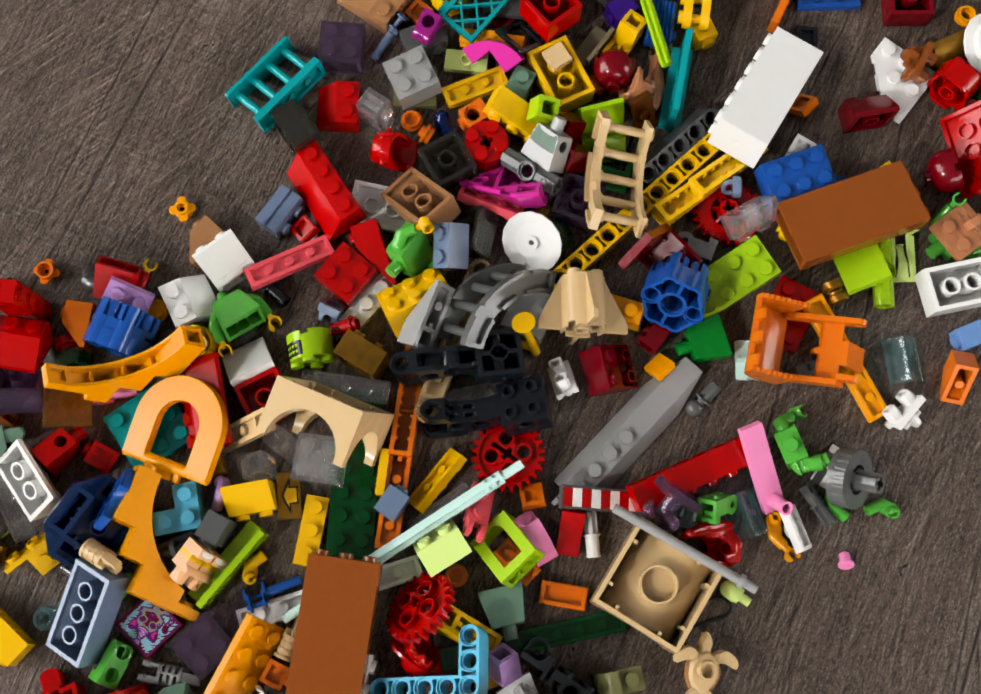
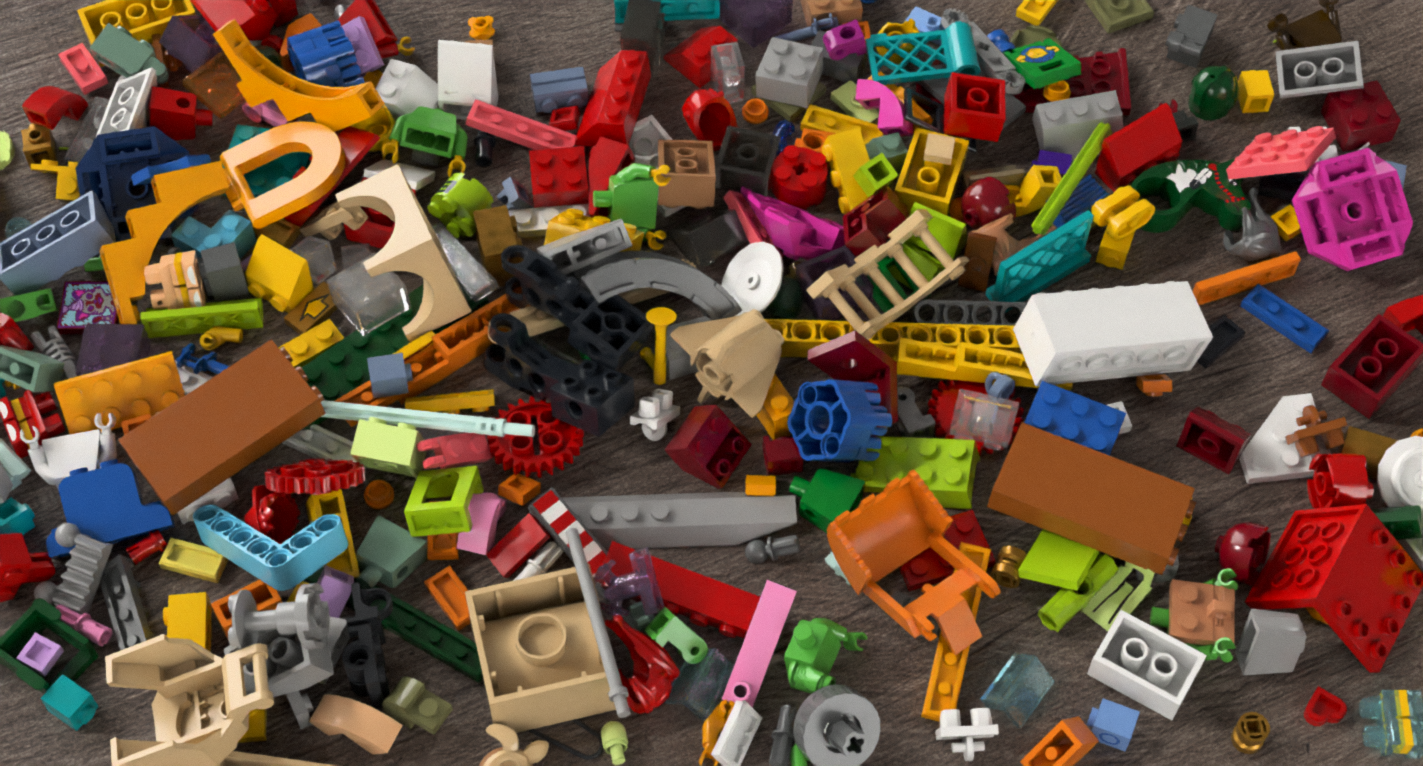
camera: 45 degrees right, 20 degrees down
(99, 455) = (202, 142): red bracket -> none
(100, 556) = (111, 202): tan hinge -> none
(350, 323) = (519, 211): red pin -> none
(425, 133) = (758, 125): orange plate -> none
(451, 246) = (671, 219): sand blue brick -> none
(522, 165) = (818, 224): dark grey piece -> none
(549, 145) = (850, 207): light grey torso -> none

